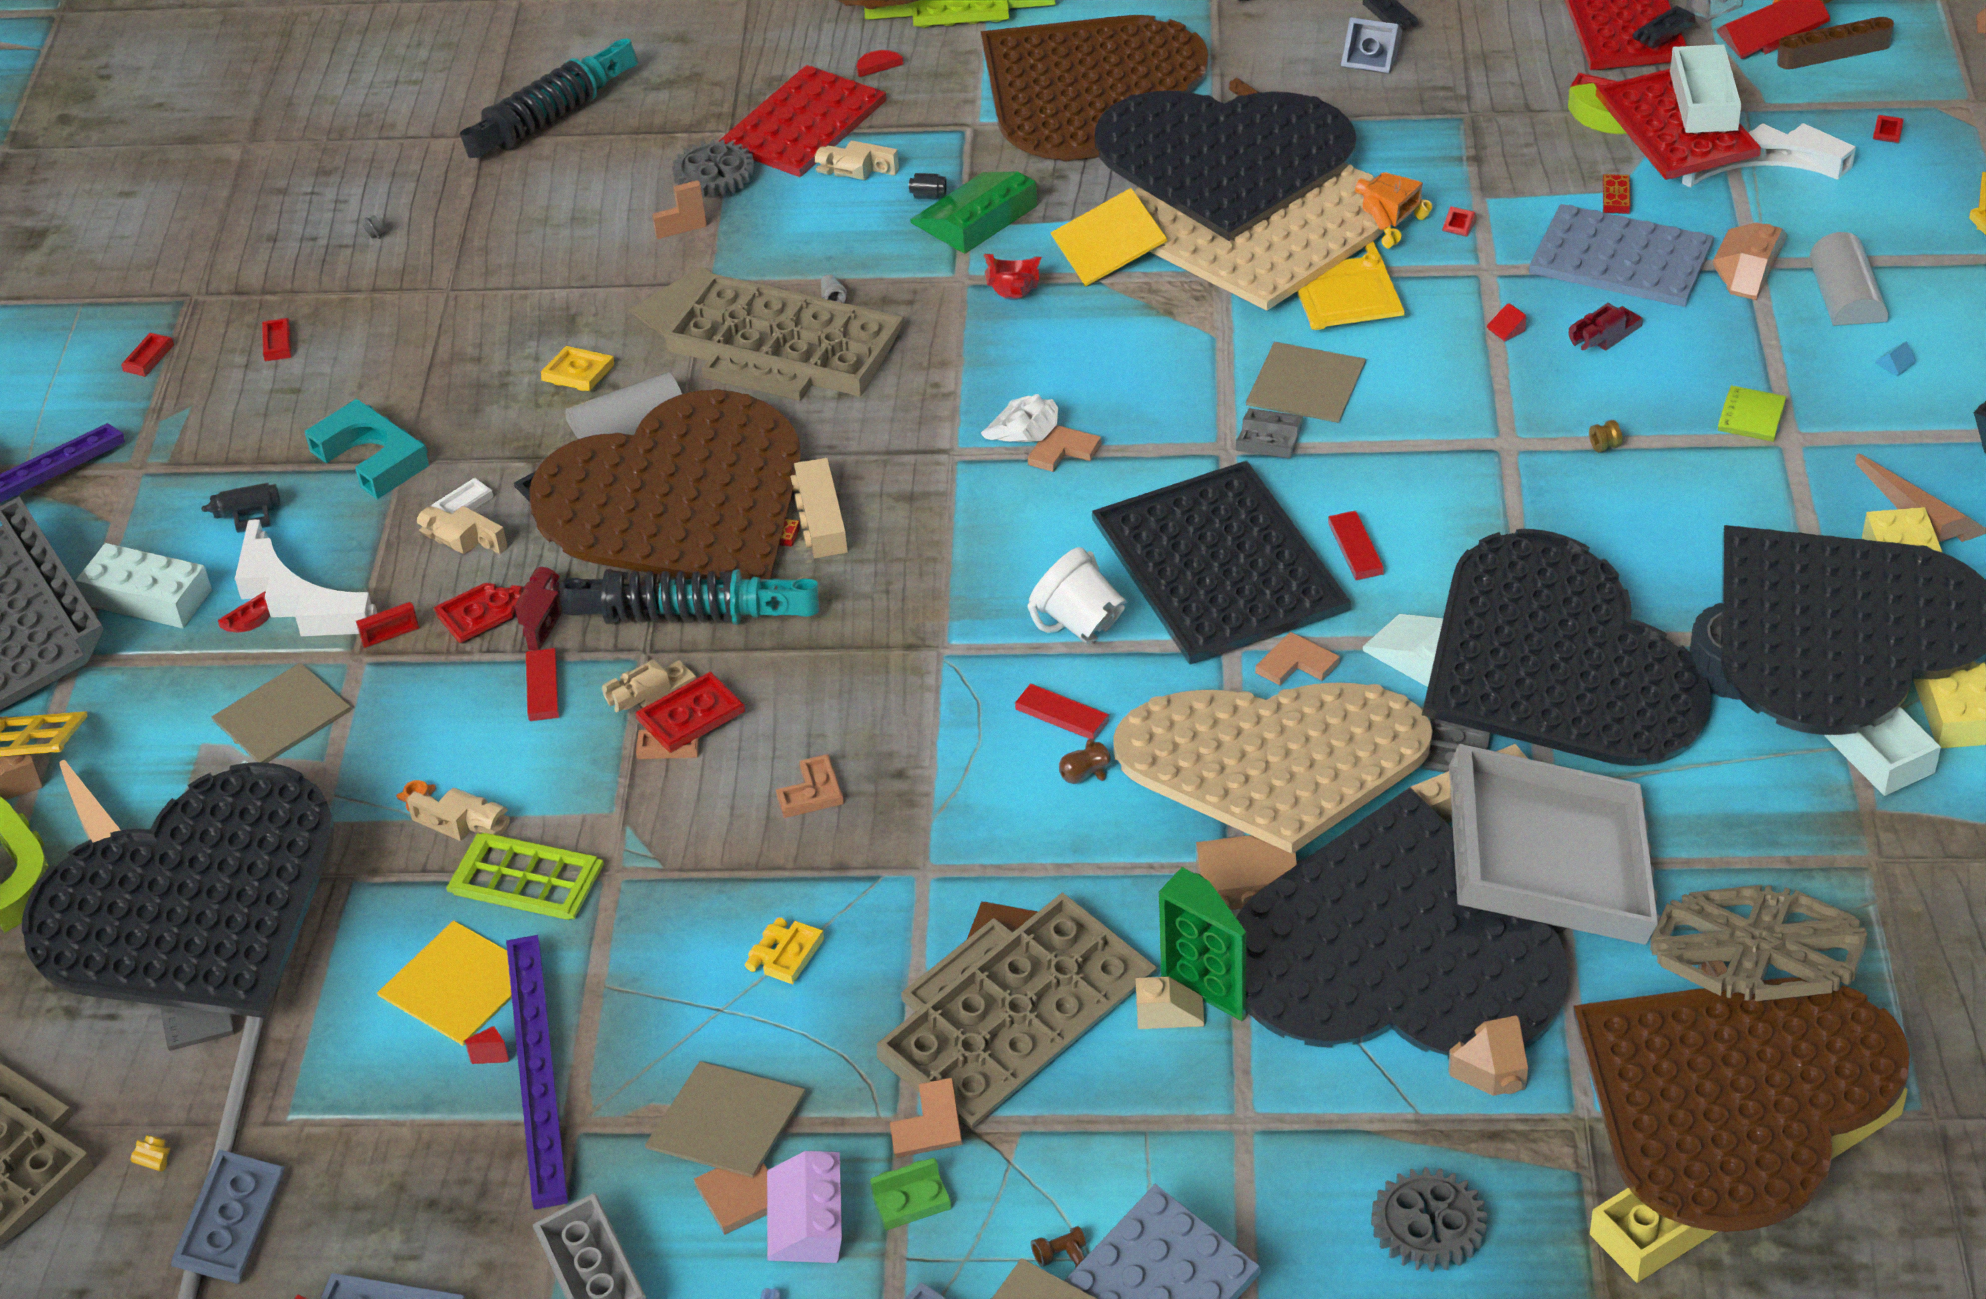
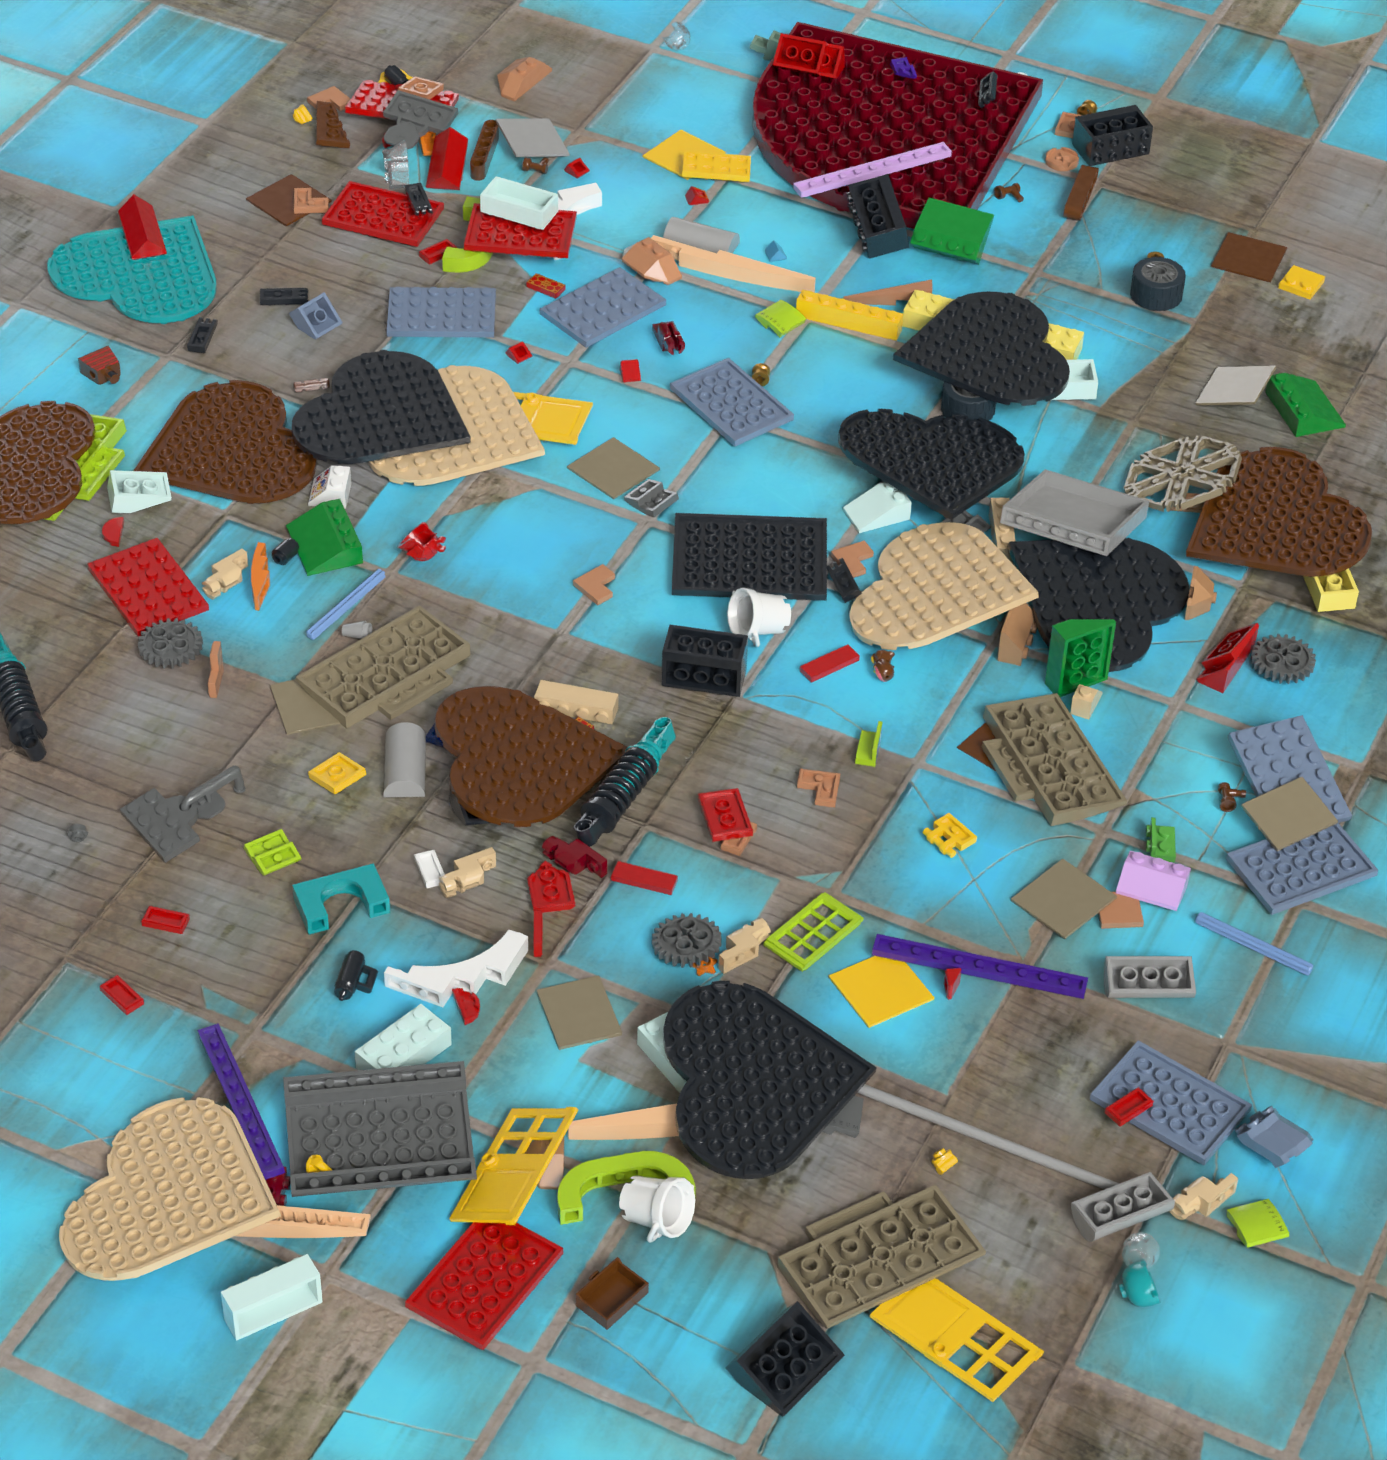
camera: 70 degrees left, 0 degrees up
(228, 1216) = (1019, 1132): sand blue tile -> none
(421, 372) = (272, 852): none -> lime slope
(436, 273) = (168, 822): none -> dark grey plate
(440, 758) = (686, 940): none -> dark grey gear
(646, 684) = (688, 826): tan plate -> none
(869, 183) = (260, 575): none -> orange slope
(876, 266) = (345, 604): none -> medium blue axle
(916, 808) = (869, 746): none -> lime panel
(936, 1128) = (1121, 811): nougat tile -> none
(943, 42) = (137, 490): none -> light aqua slope
(949, 580) = (704, 660): none -> black brick
(1024, 420) = (563, 589): white slope -> none
(1070, 178) = (331, 485): none -> white slope
(1108, 237) = (413, 492): yellow piece -> none
(1236, 663) = (844, 580): none -> black hinge
(1355, 545) = (774, 501): red tile -> none
(1380, 1150) = (1228, 657): none -> red slope
(1390, 201) = (496, 363): orange torso -> none
(1481, 135) = (441, 312): none -> sand blue plate
(1525, 432) = (731, 401): none -> sand blue plate
(1816, 330) = (736, 267): none -> light nougat slope
(1817, 470) = (850, 315): none -> yellow brick
(1846, 87) = (542, 166): none -> reddish brown piece
(1902, 67) = (532, 137): none -> light grey piece
(1944, 248) = (696, 196): none -> red slope

